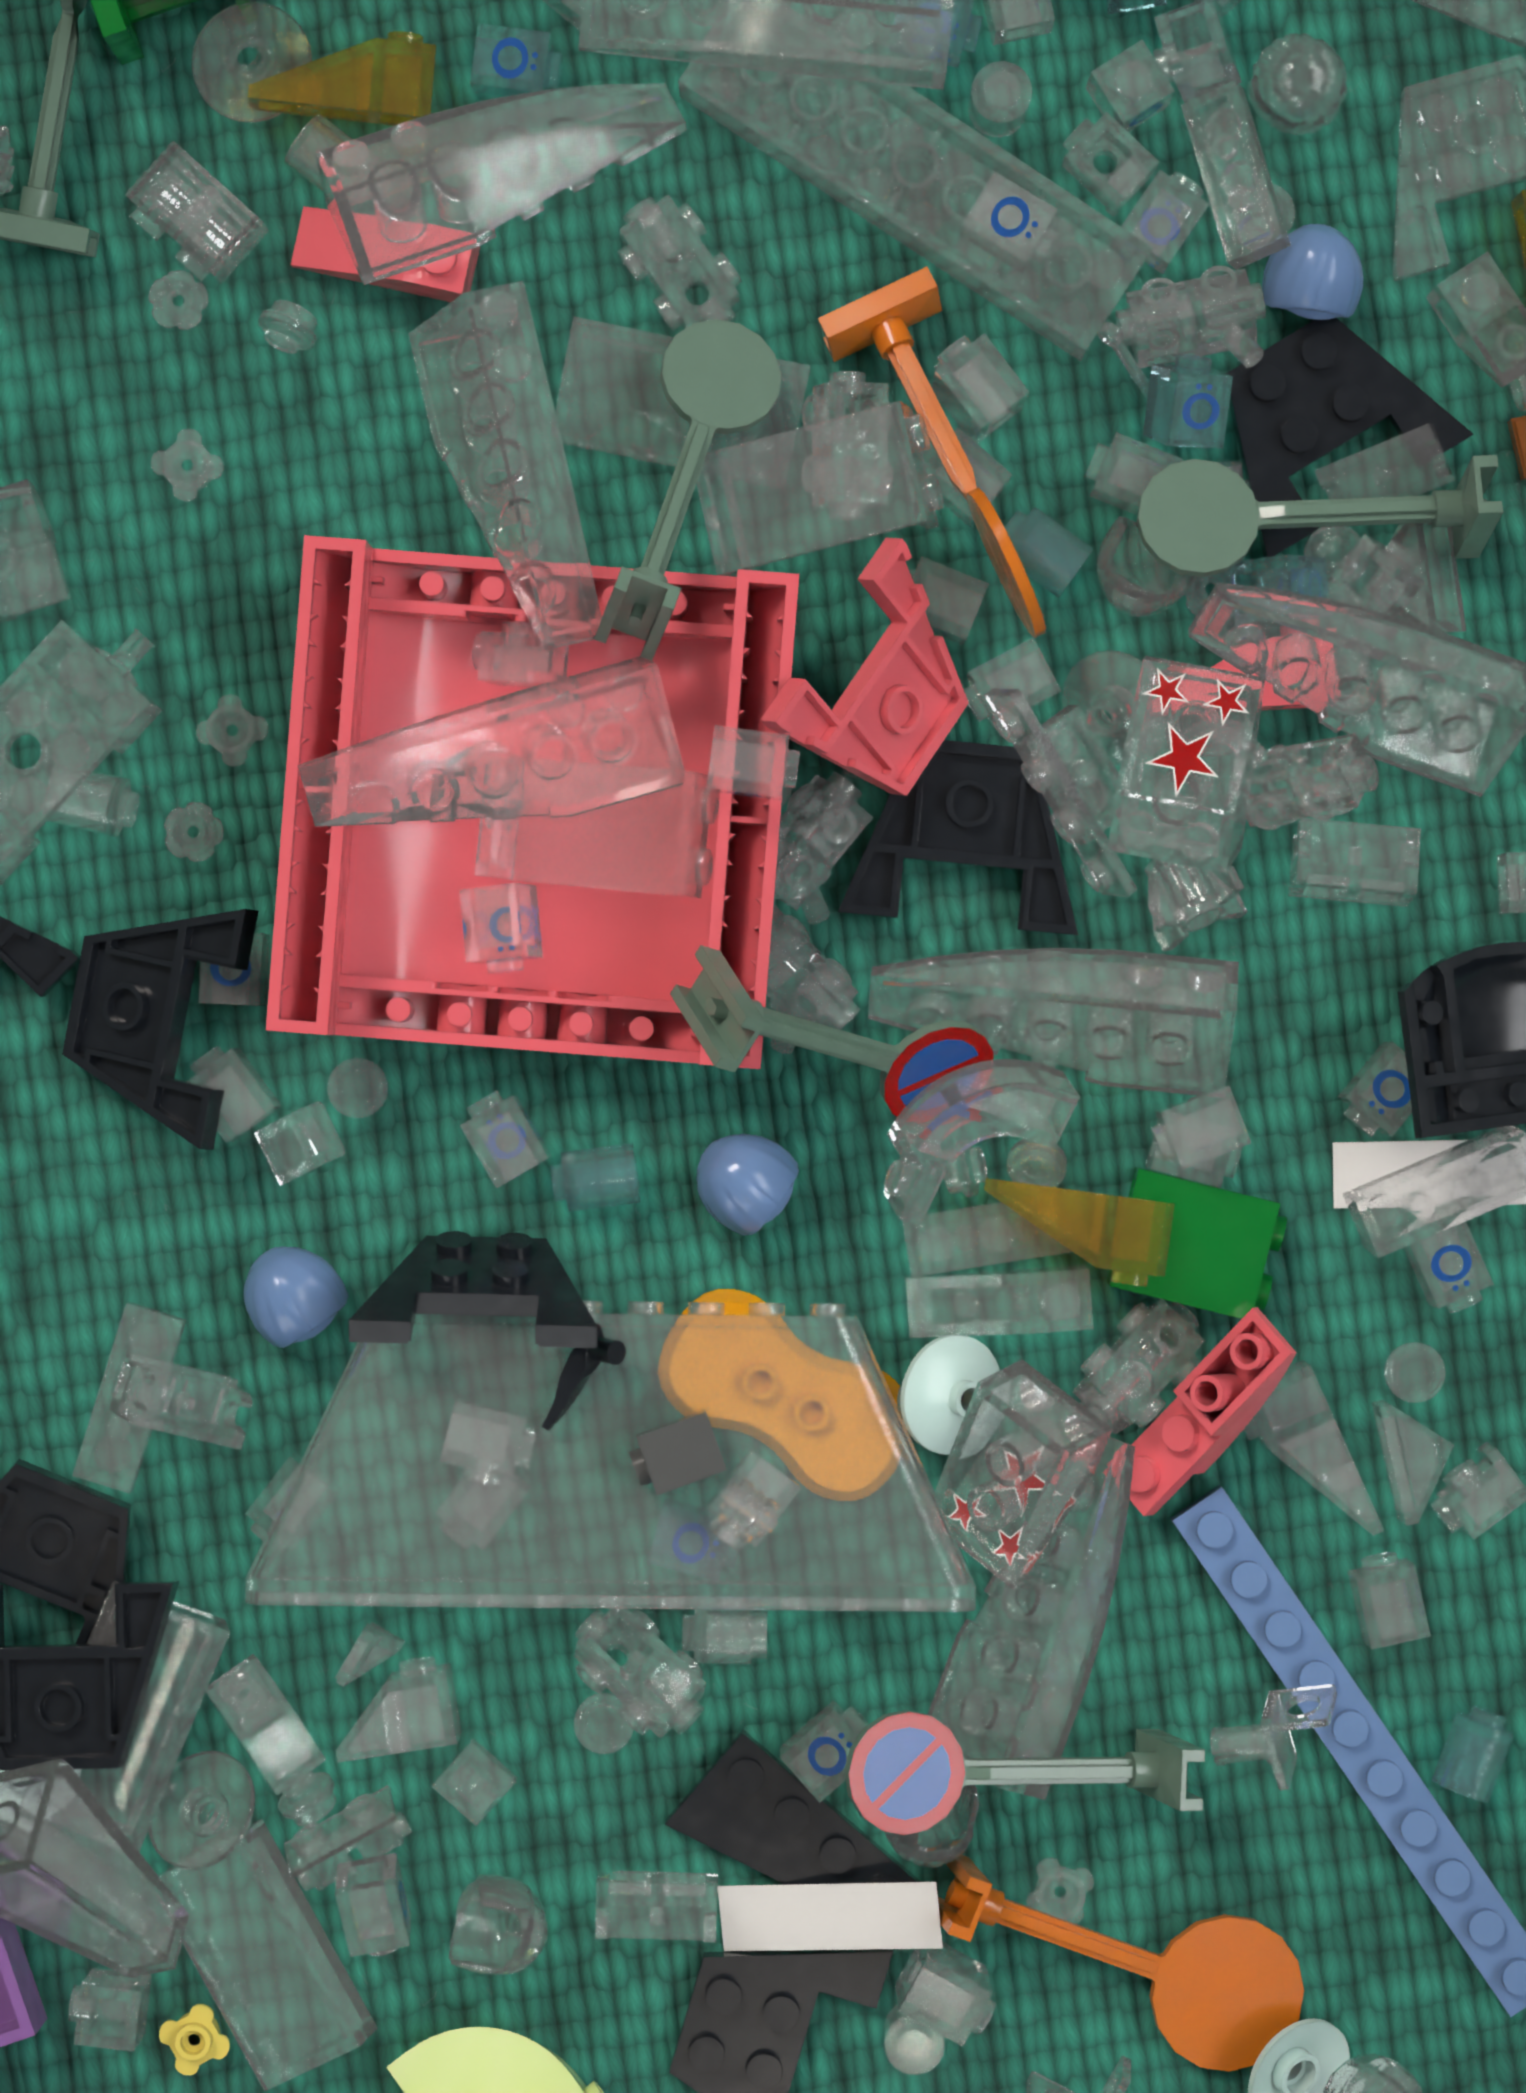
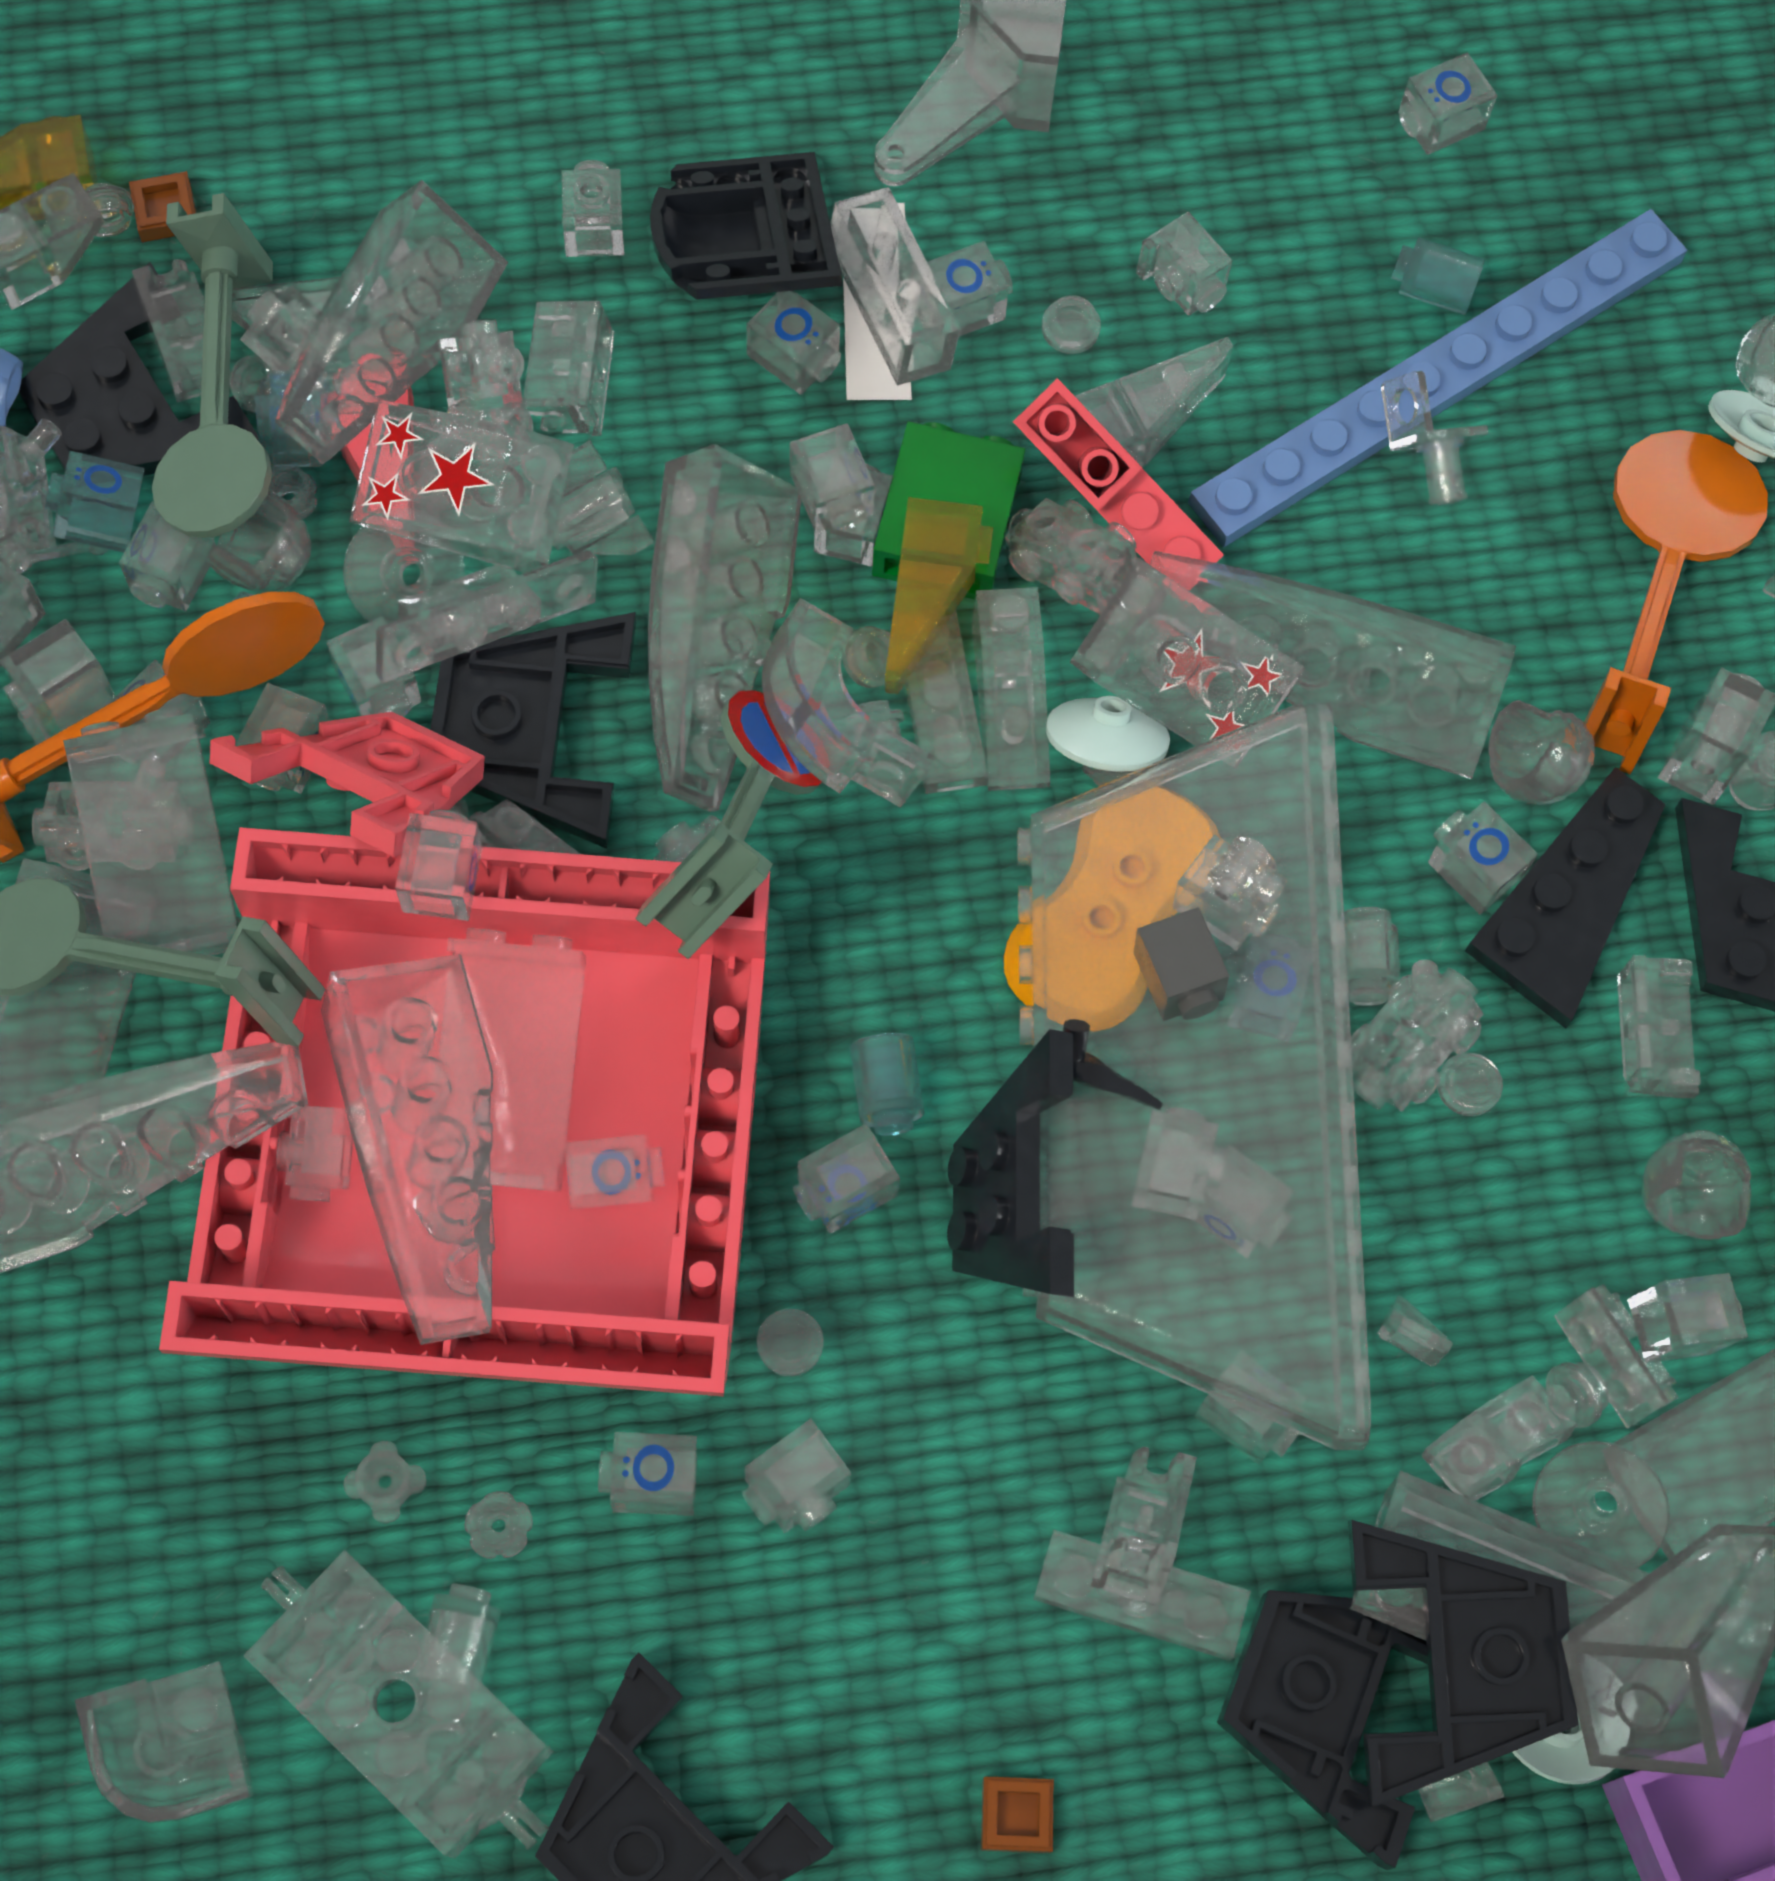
camera: 90 degrees left, 20 degrees down
(134, 1011) = (699, 1583): black wing -> none
(204, 468) = (97, 1535): clear plate -> none
(292, 1295) = (1022, 1406): medium blue hair -> none
(300, 1142) = (852, 1409): clear slope -> none
(407, 1713) = (1477, 1288): clear slope -> none
(474, 1782) = (1544, 1219): clear tile -> none
(745, 1181) = (891, 930): medium blue hair -> none
(830, 1916) = (1654, 843): white sticker -> none
(912, 1771) = (1493, 732): piece -> none
(1075, 1882) = (1605, 628): clear plate -> none
(1388, 1600) = (1296, 345): clear brick -> none
(1412, 1459) = (1157, 332): clear slope -> none

